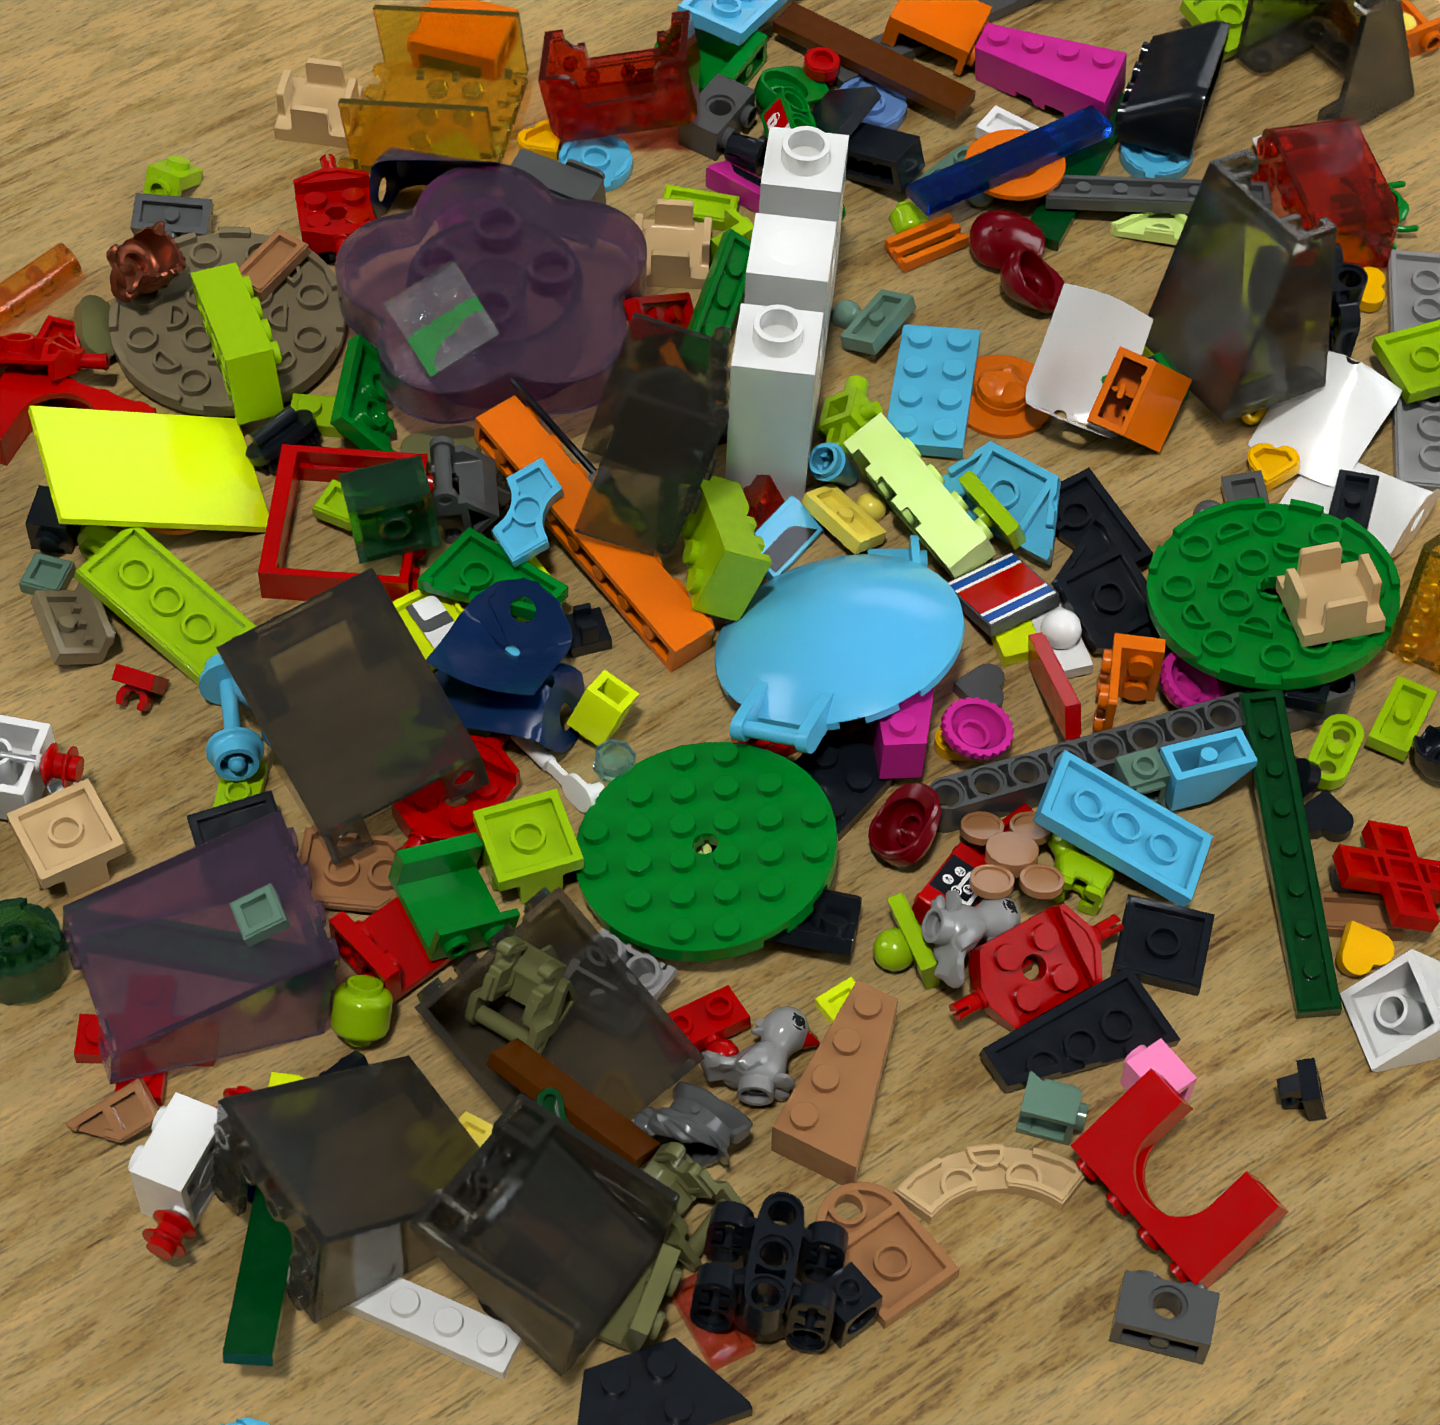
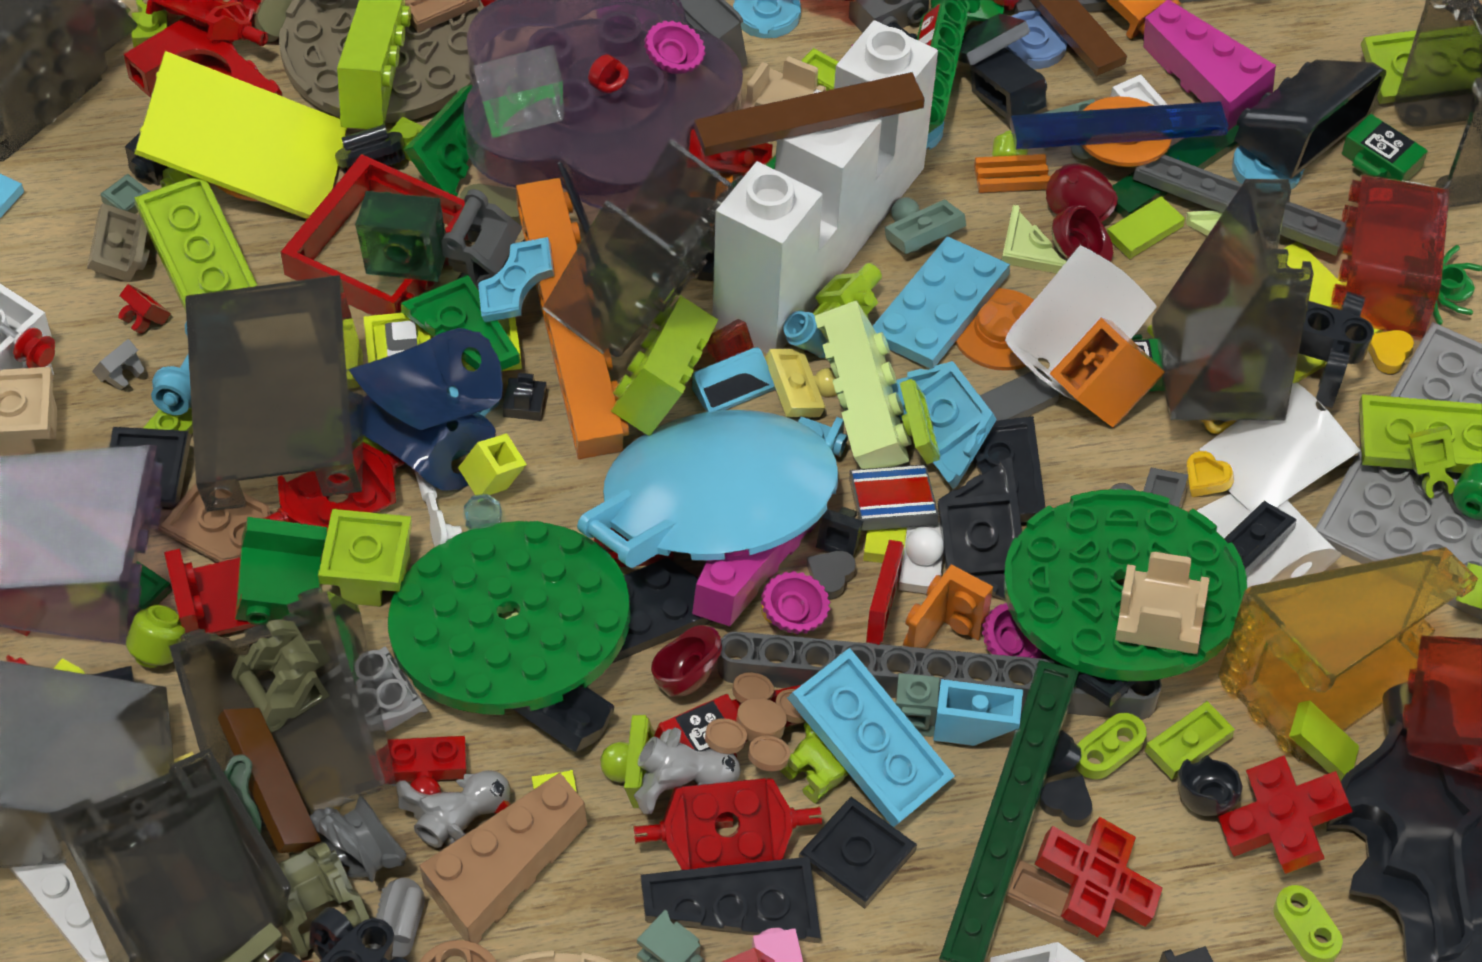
camera: 25 degrees right, 0 degrees up
(144, 749) = (120, 359): none -> light grey tile
(259, 915) = (91, 523): sand green tile -> none
(512, 272) = (608, 74): none -> red tile
(565, 223) = (674, 47): none -> dark pink hat
(760, 1175) = (402, 908): none -> light grey piece
(765, 239) = (808, 113): none -> reddish brown tile
(977, 646) = (839, 531): none -> black tile
(983, 308) = (1028, 246): none -> yellowish green tile
(1064, 450) = (1020, 397): none -> dark grey tile
(1081, 250) = (1145, 227): none -> lime tile
(1254, 103) = (1383, 150): none -> green piece
(1363, 949) = (1030, 927): yellow tile -> none

